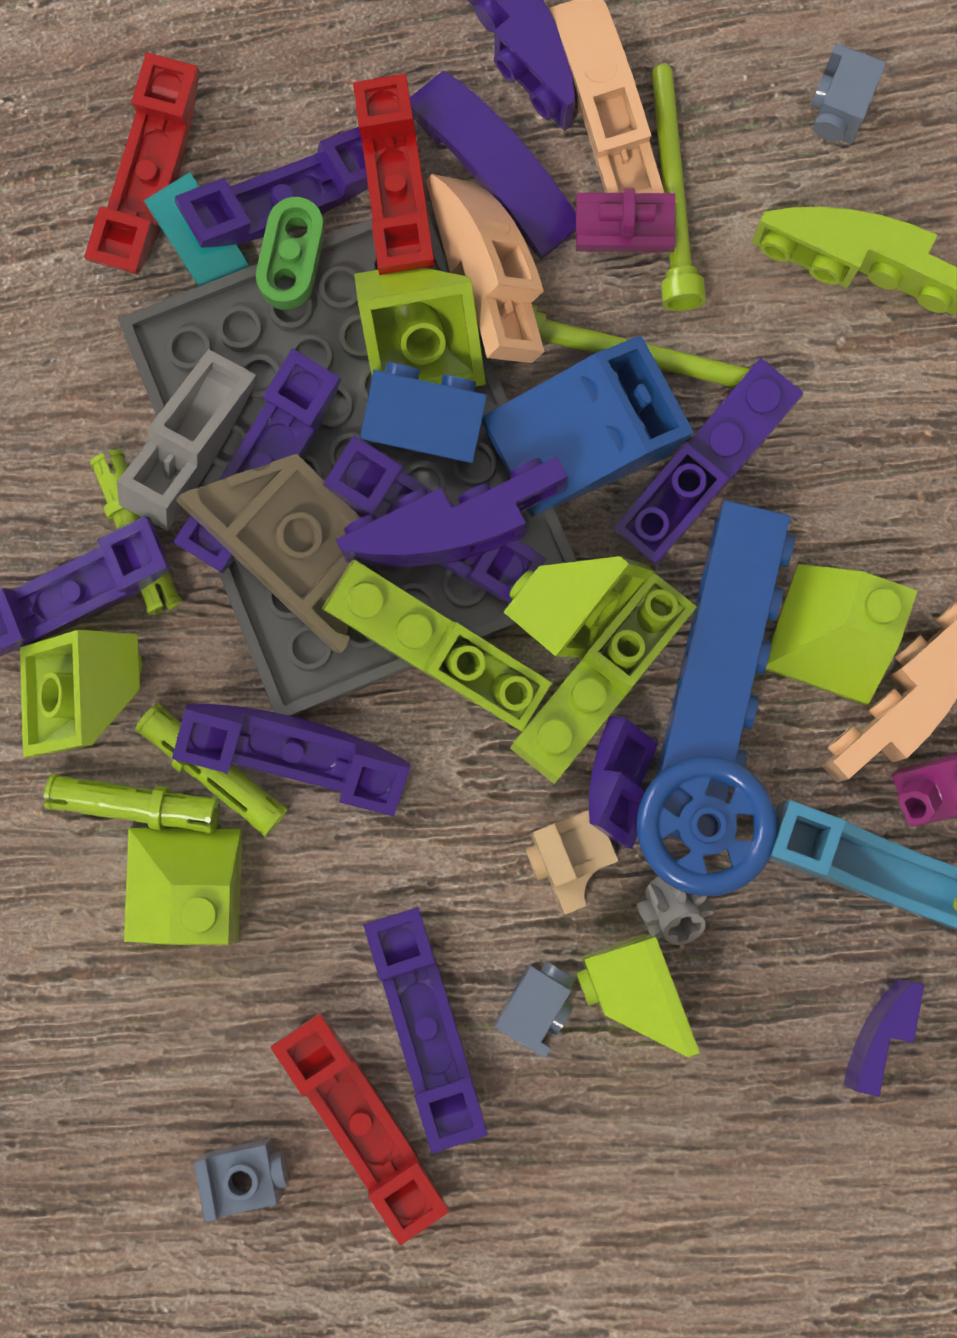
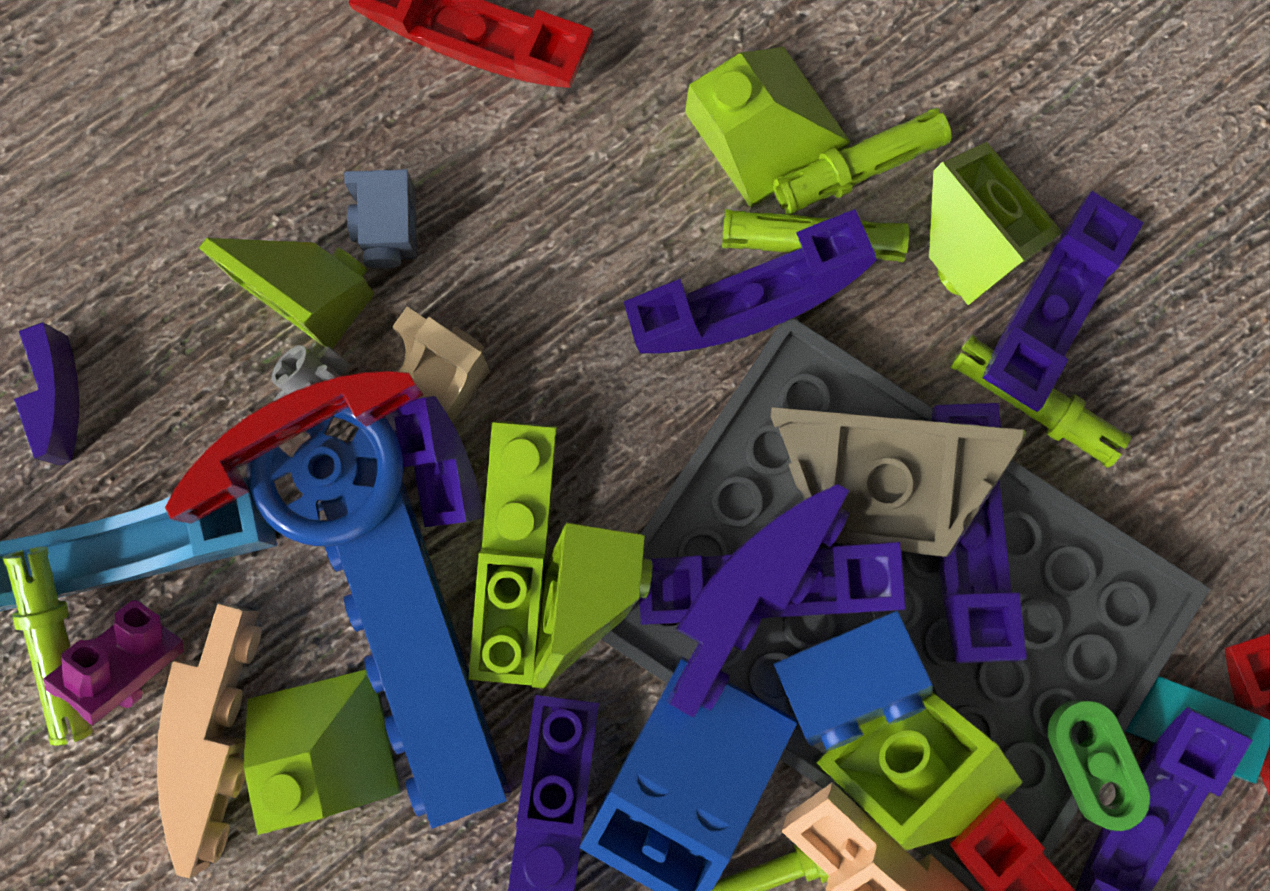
camera: 135 degrees right, 0 degrees up
(185, 439) = (1060, 512): light grey slope -> none
(426, 1030) = (465, 137): dark purple slope -> none
(436, 645) = (688, 470): lime slope -> none
(791, 859) = (215, 475): none -> red slope

